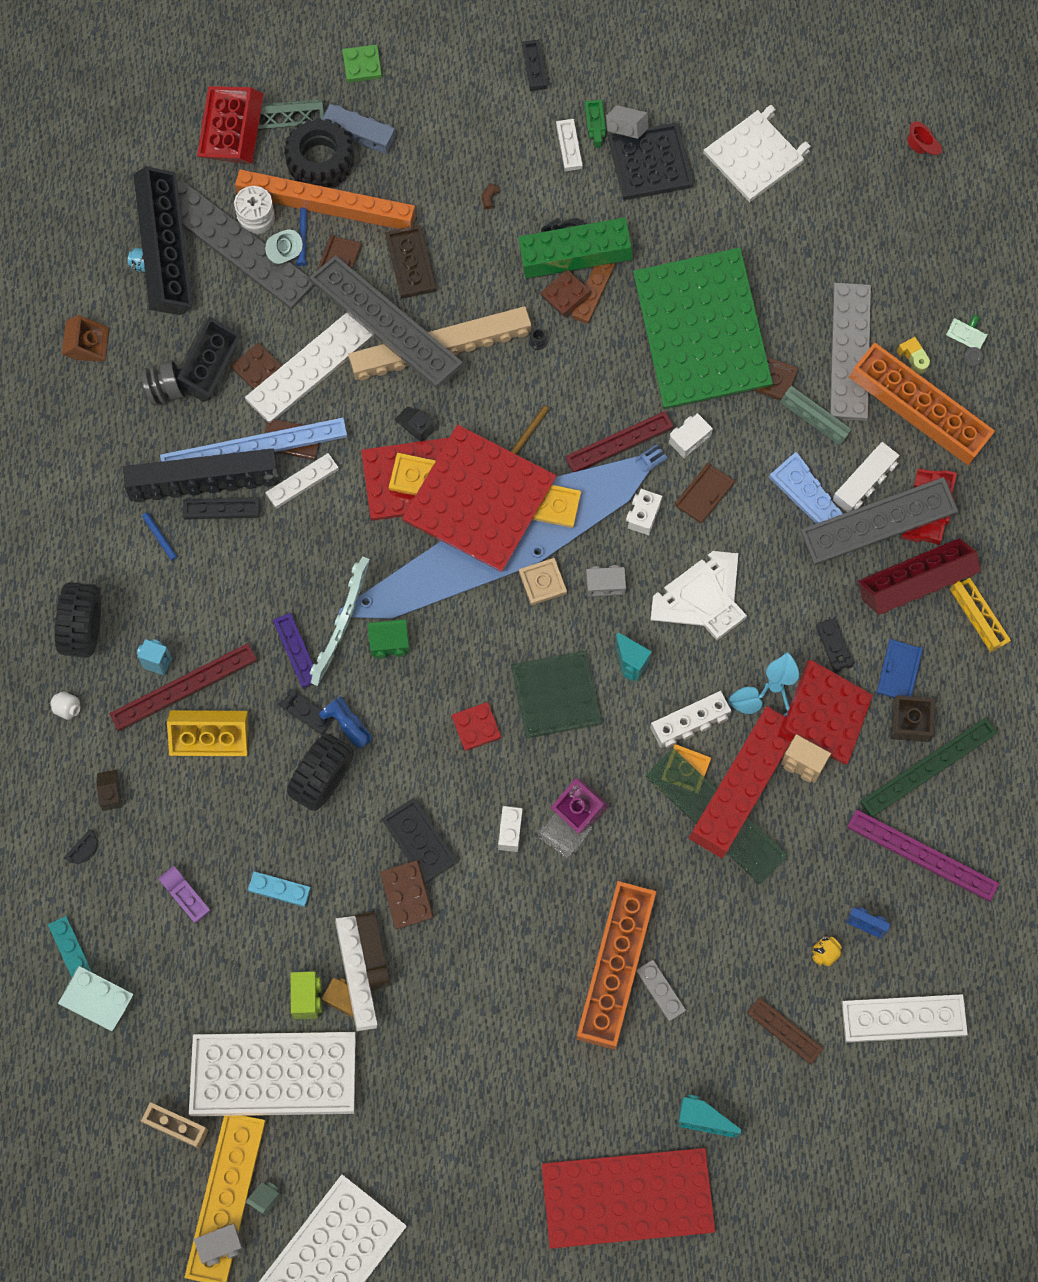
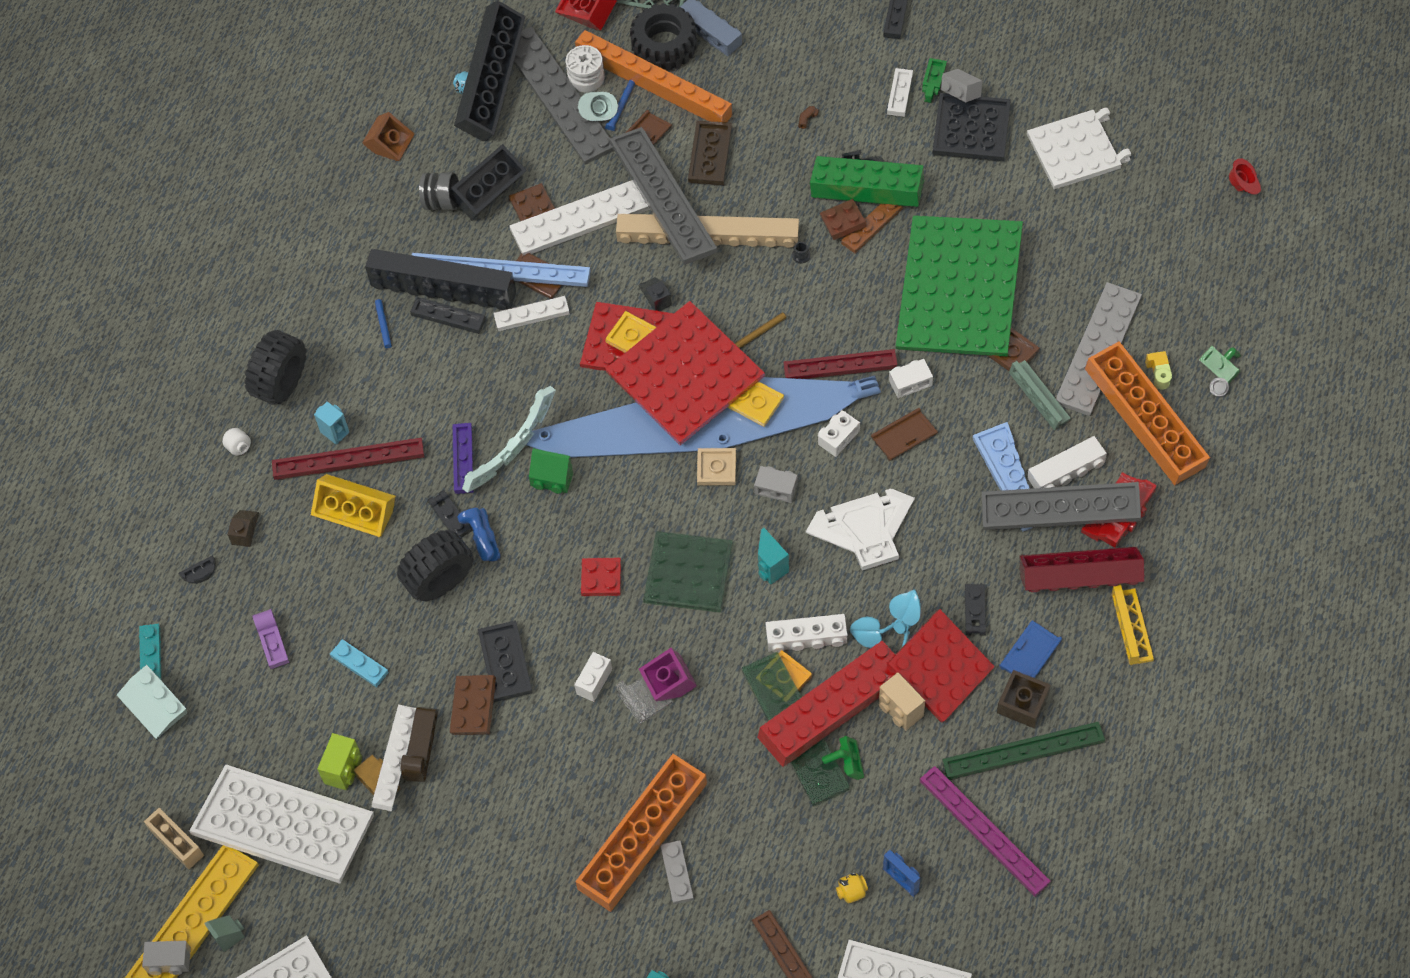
camera: 25 degrees right, 10 degrees down
(776, 825) = (850, 753): none -> green plate

